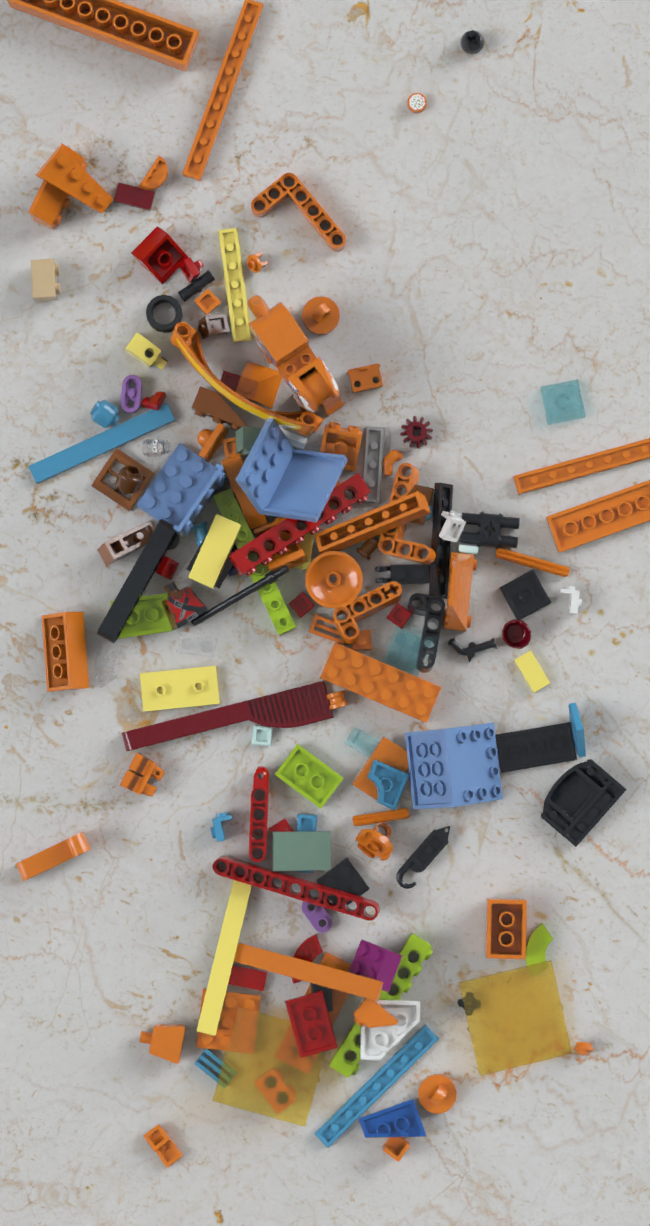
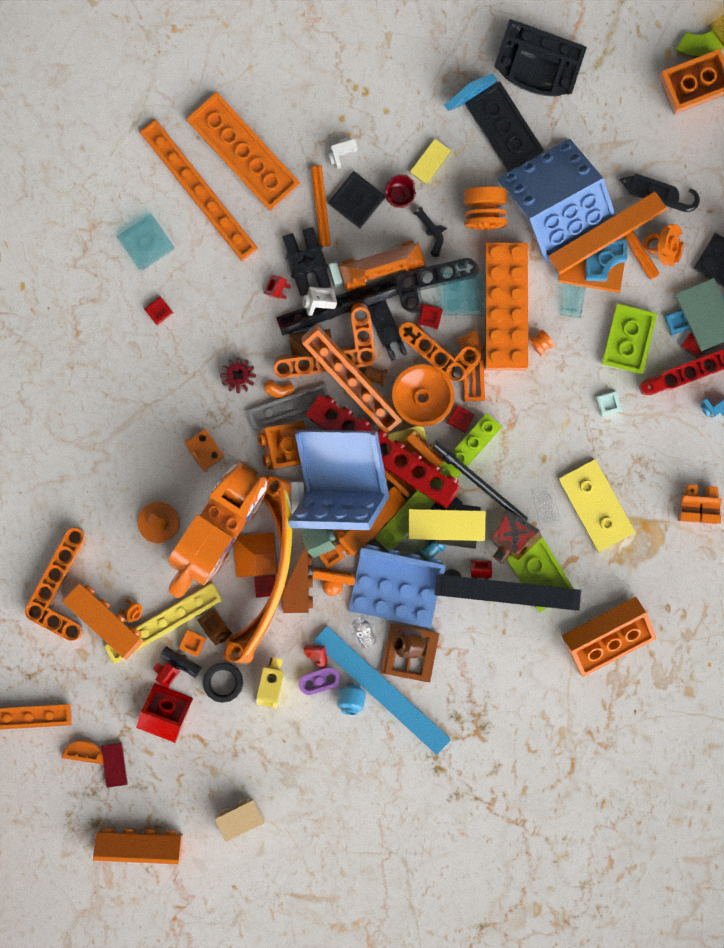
camera: 115 degrees left, 0 degrees up
(69, 176) = (124, 835): orange wing -> none
(126, 543) = (473, 620): dark orange slope -> none
(256, 234) = (103, 621): none -> orange brick
(278, 710) = (576, 397): dark red piece -> none
(407, 795) = (607, 233): none -> orange tile
(471, 699) = (485, 209): none -> orange wheel
(479, 494) = (275, 287): none -> red tile
(499, 389) = (158, 310): none -> red tile

